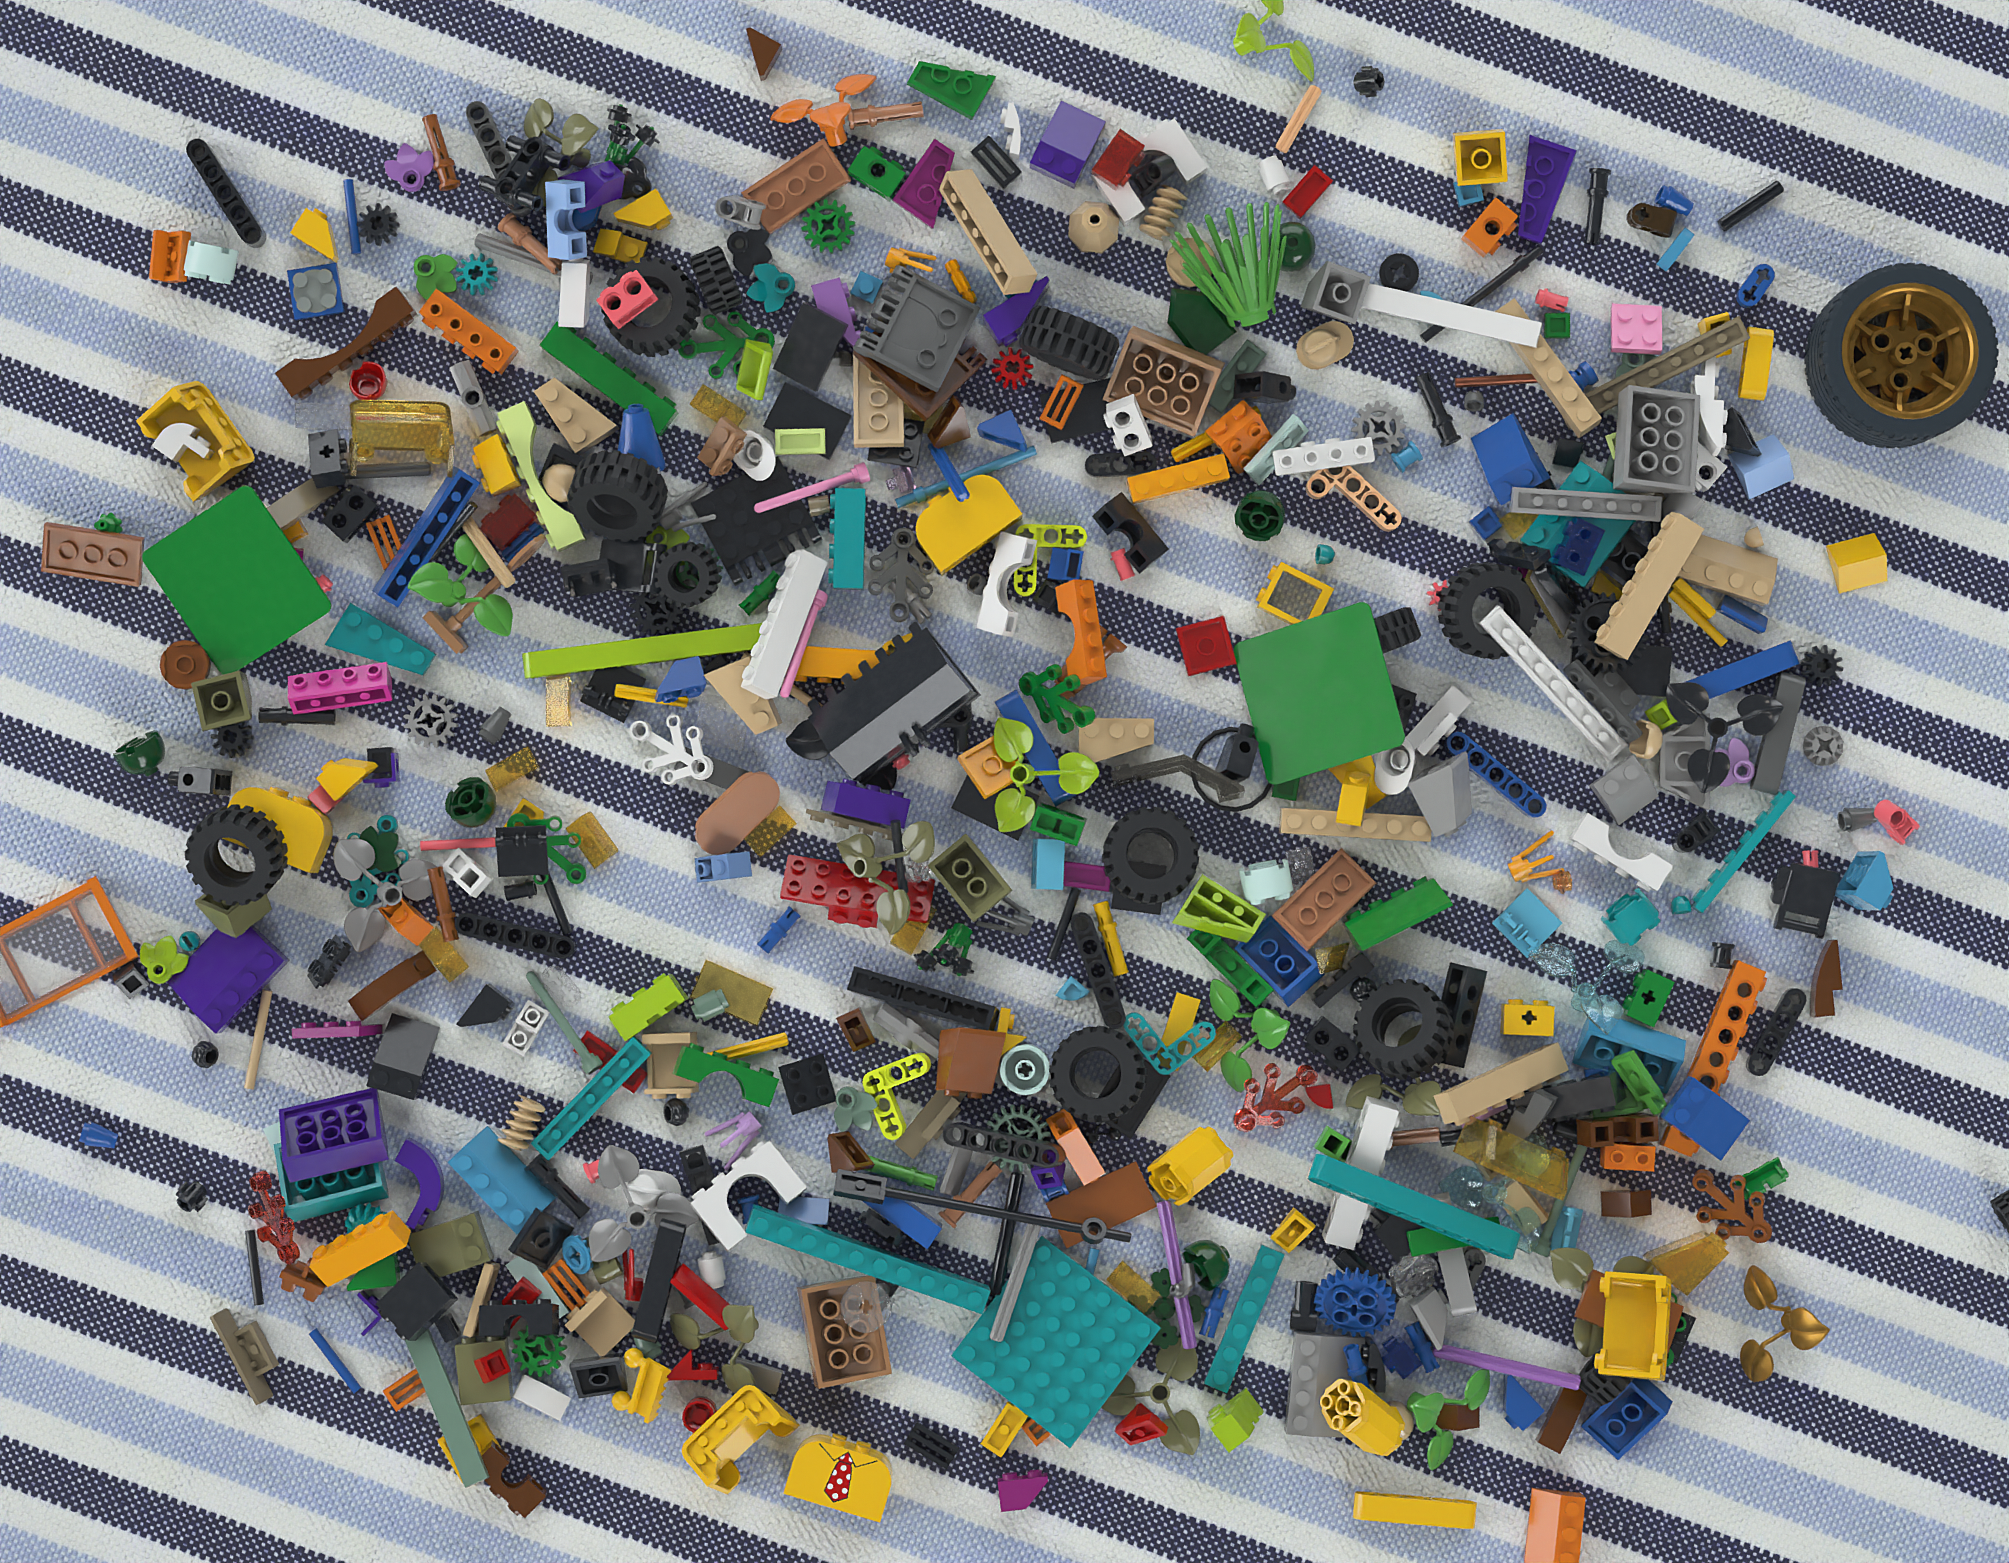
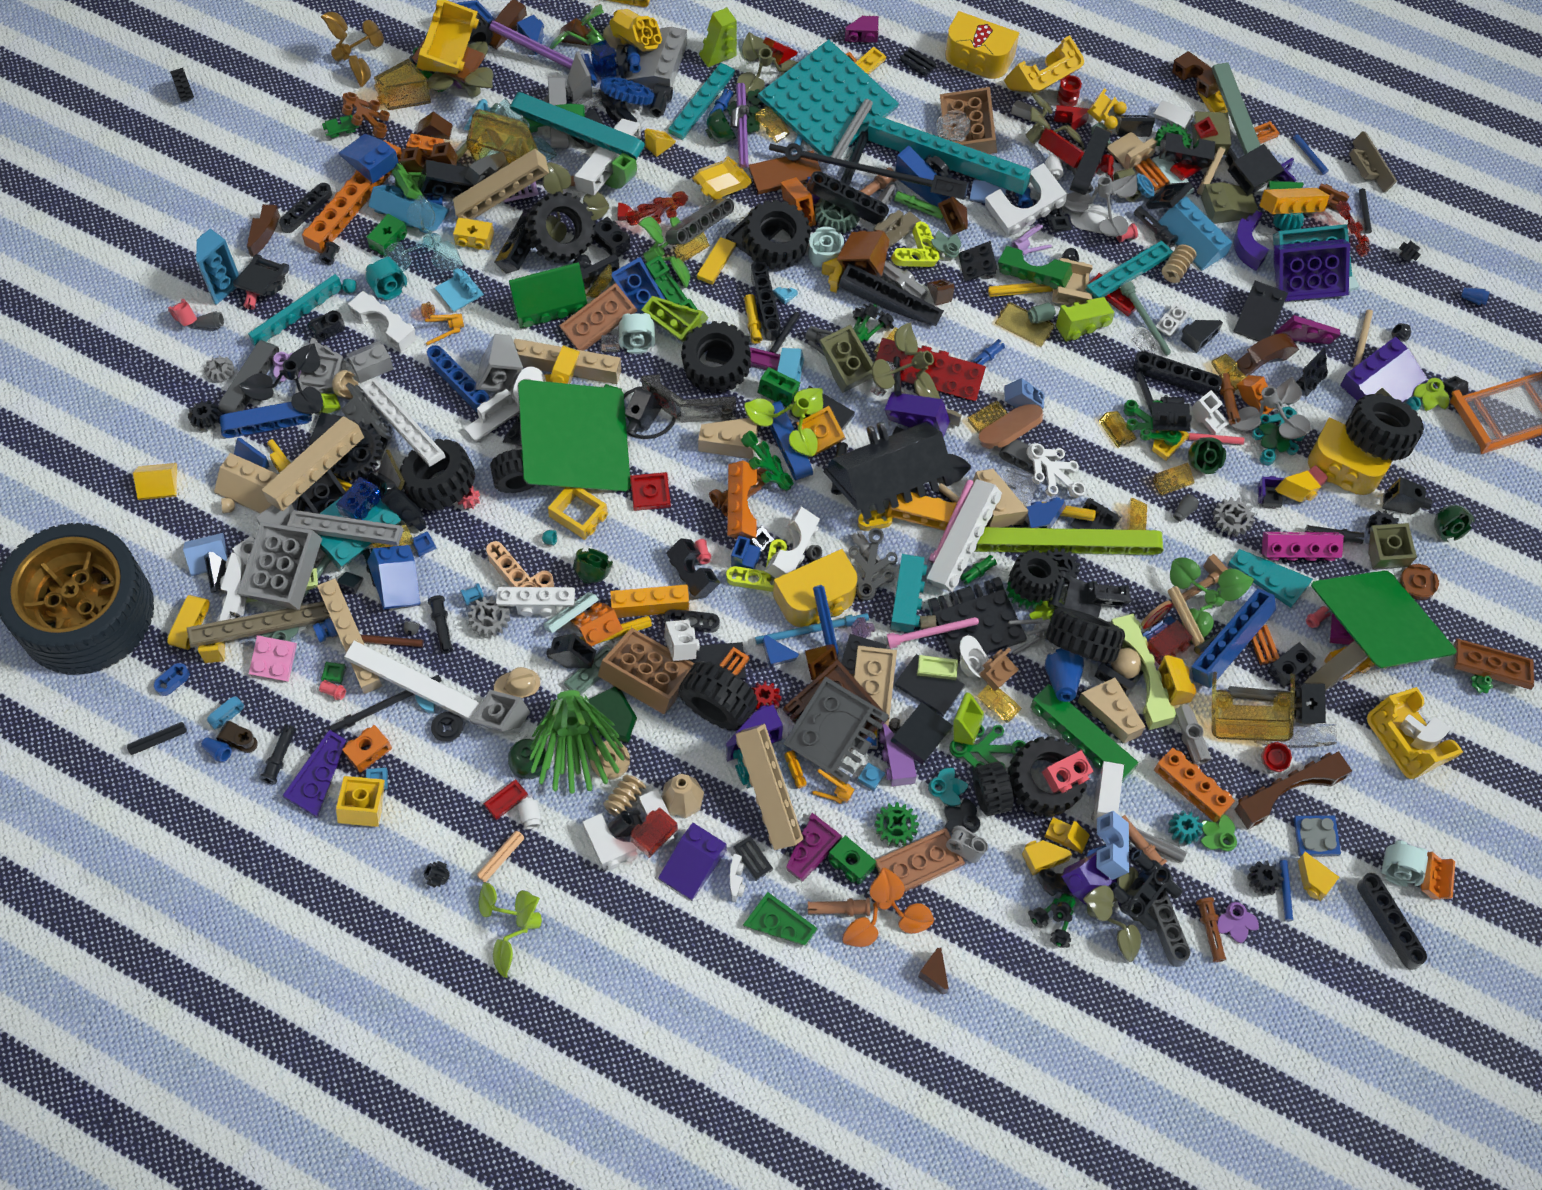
camera: 175 degrees left, 25 degrees down
(1170, 1051) = (723, 245): teal beam -> none
(1209, 1080) = (699, 221): none -> dark grey beam

